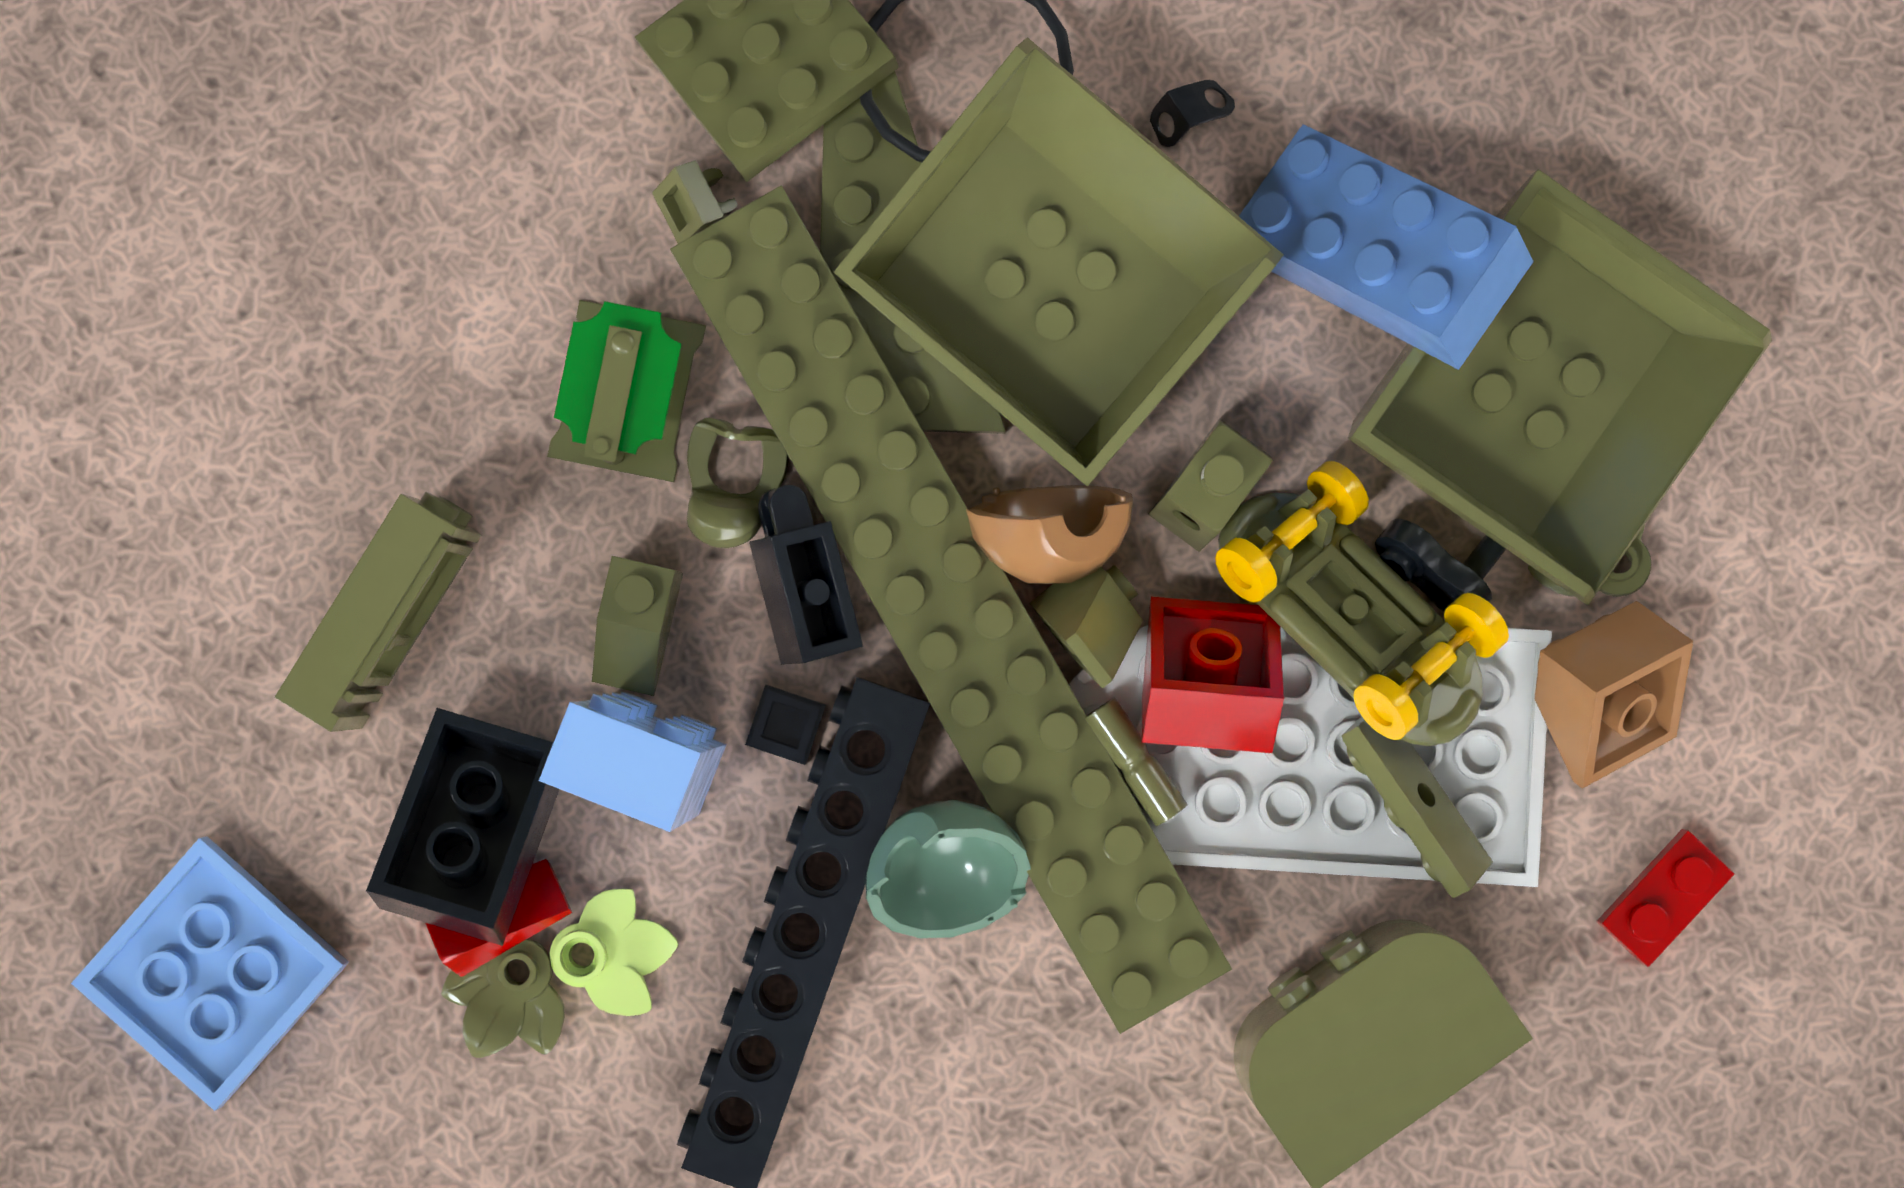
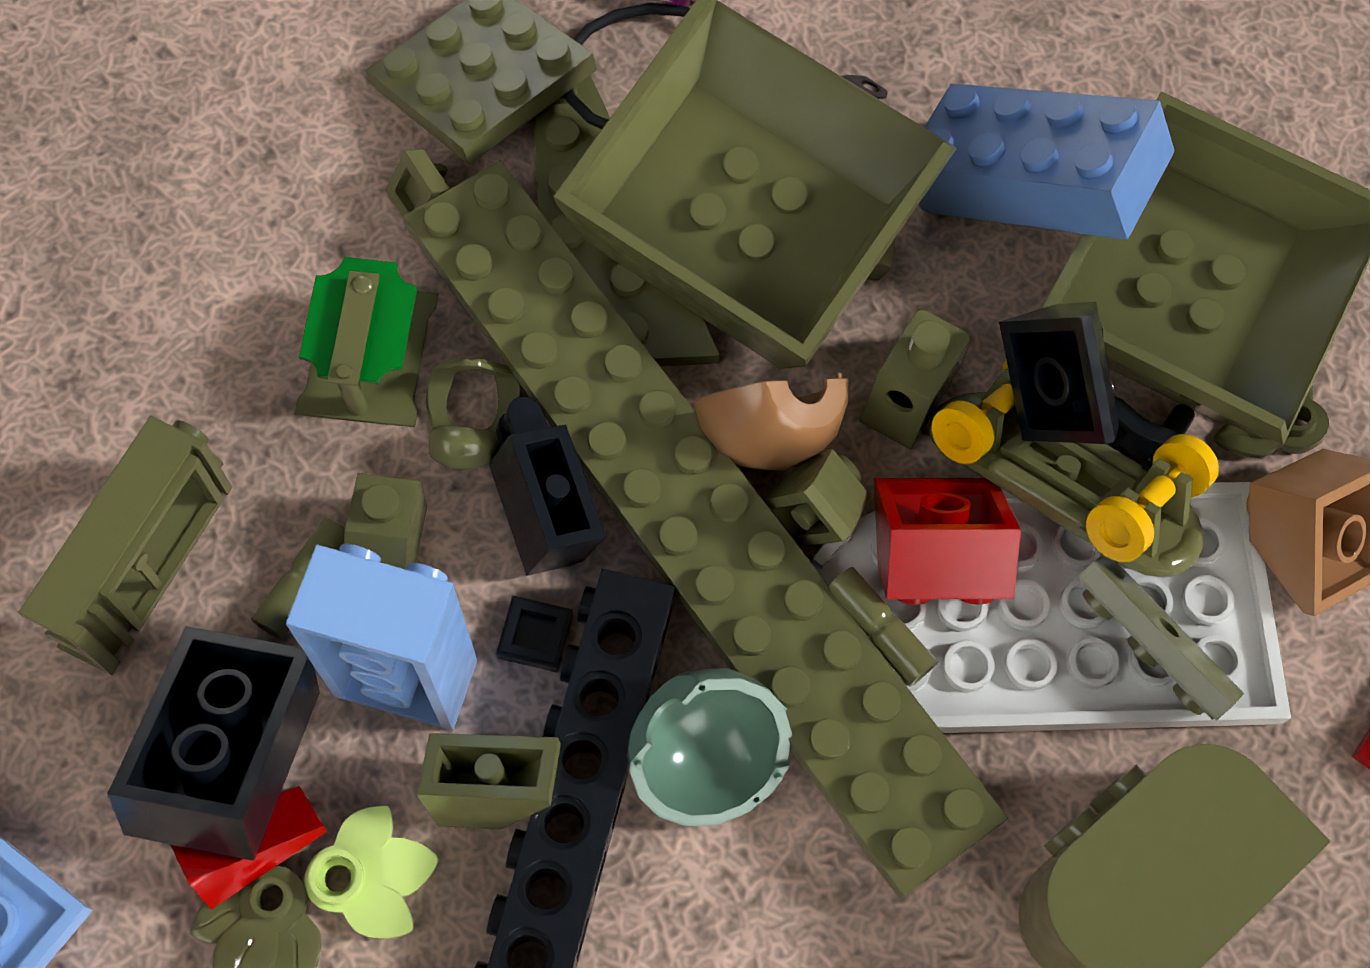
camera: 10 degrees left, 20 degrees down
(548, 653) = (277, 606): none -> olive piece
(729, 884) = (487, 778): none -> olive slope
(1360, 523) = (1061, 375): none -> black slope

